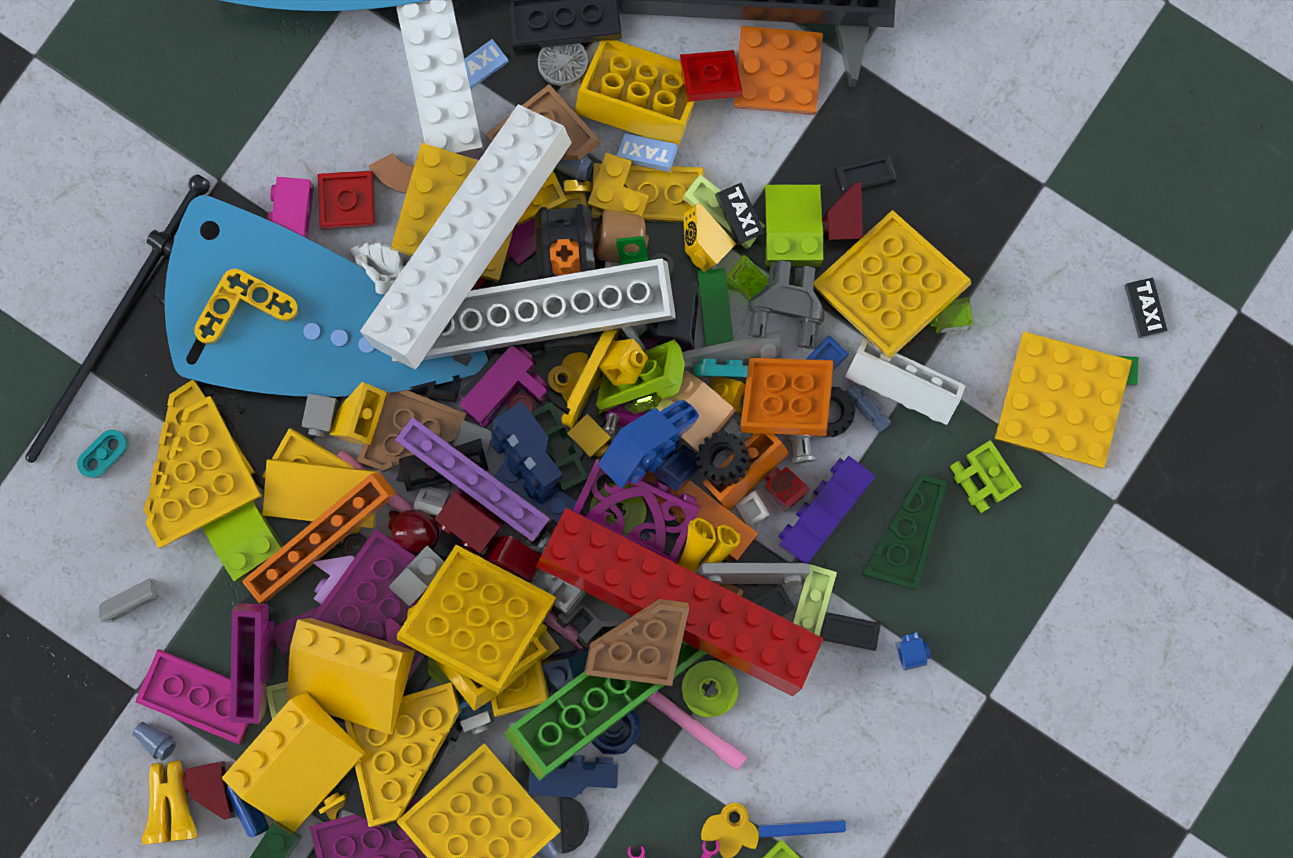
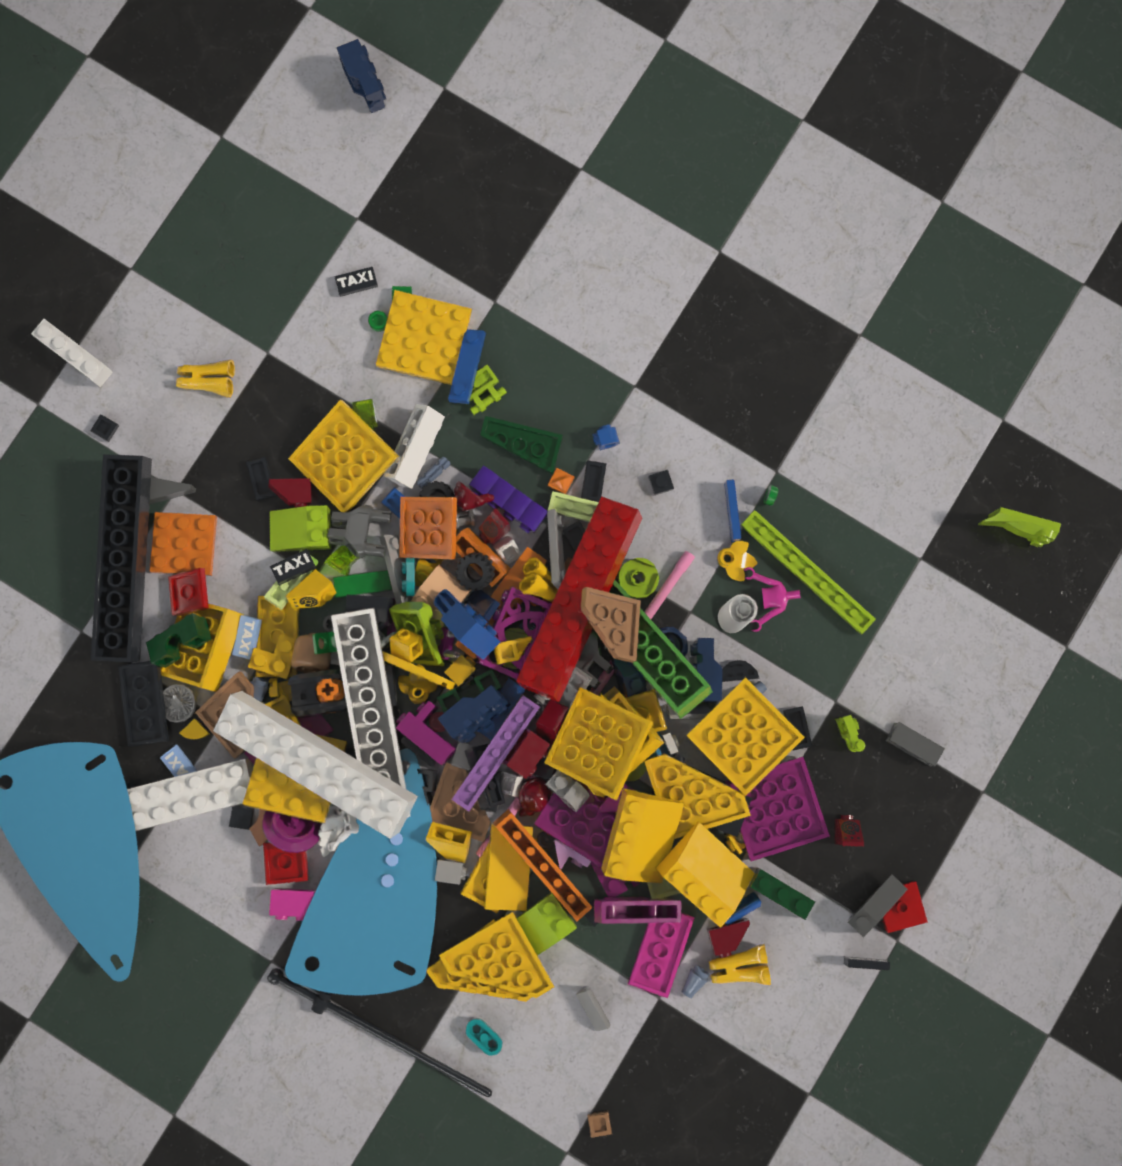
camera: 95 degrees left, 0 degrees up
(234, 297) = (363, 941): yellow beam -> none
(380, 204) = (290, 832): none -> magenta piece
(406, 142) = (241, 817): none -> black tile
(525, 83) = (194, 730): none -> yellow tile
(612, 505) = (511, 649): none -> yellow tile
(654, 76) = (190, 631): none -> dark green arch
(654, 827) = (737, 613): none -> white cap
(826, 452) = (469, 500): none -> dark red hat
(846, 727) = (661, 482): none -> black plate
(851, 585) = (561, 481): none -> orange tile
(996, 120) = (221, 385): none -> yellow piece
(1018, 458) = (467, 366): none -> blue plate
(1088, 336) = (377, 321): none -> green tile

